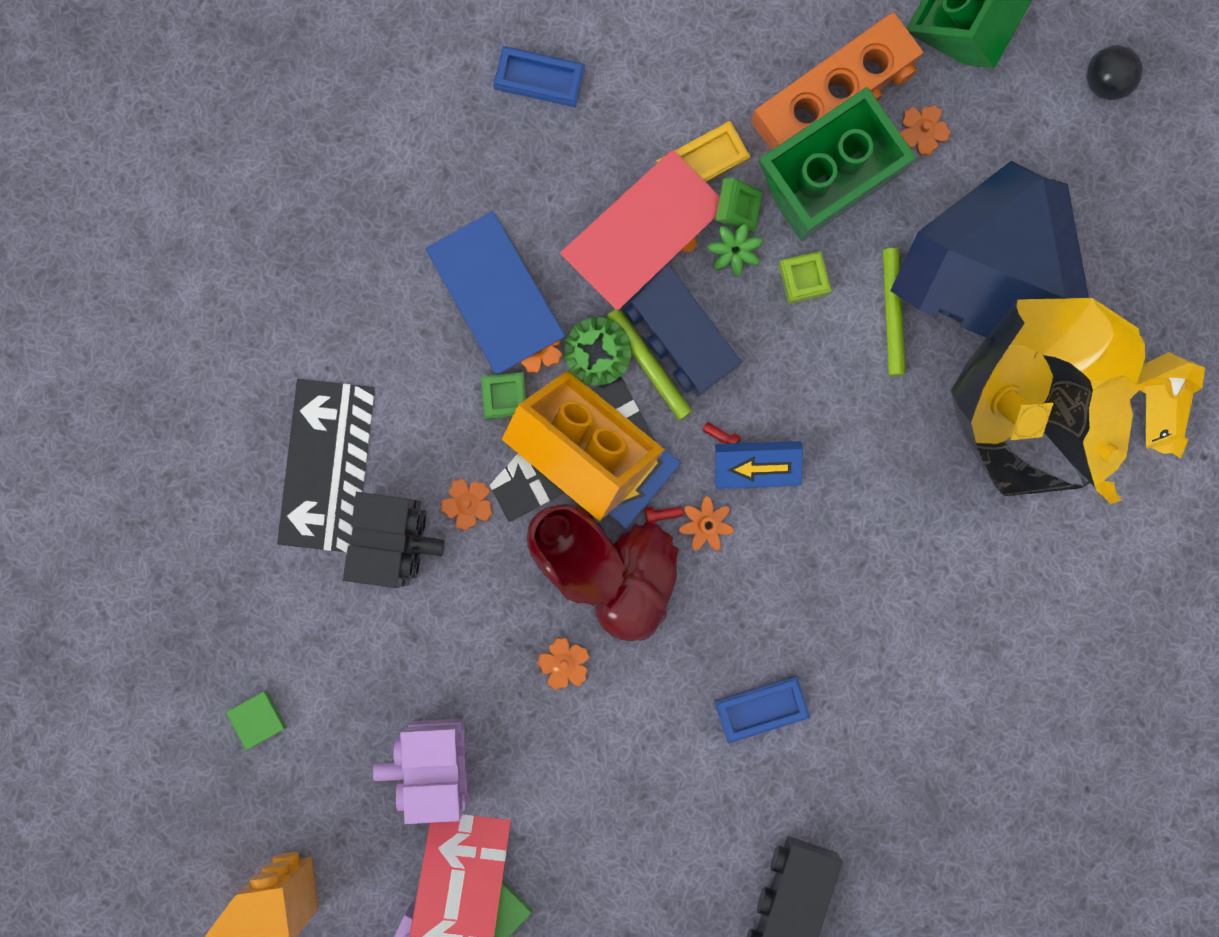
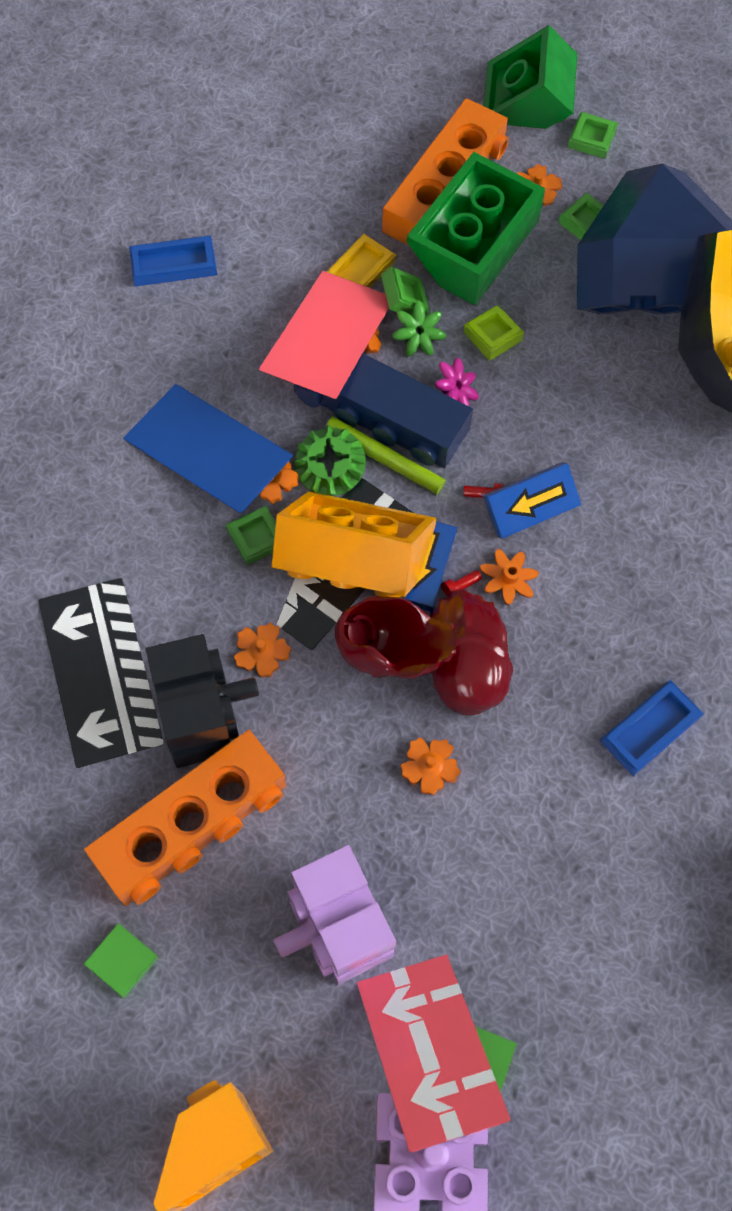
camera: 25 degrees left, 20 degrees down
(280, 641) = (157, 821): none -> orange brick
(743, 322) = (456, 382): none -> dark pink plant
(894, 314) = (589, 332): lime bar -> none
(950, 185) = (580, 215): none -> bright green tile
(1006, 92) = (592, 135): none -> bright green tile
(1114, 72) = (674, 87): black piece -> none

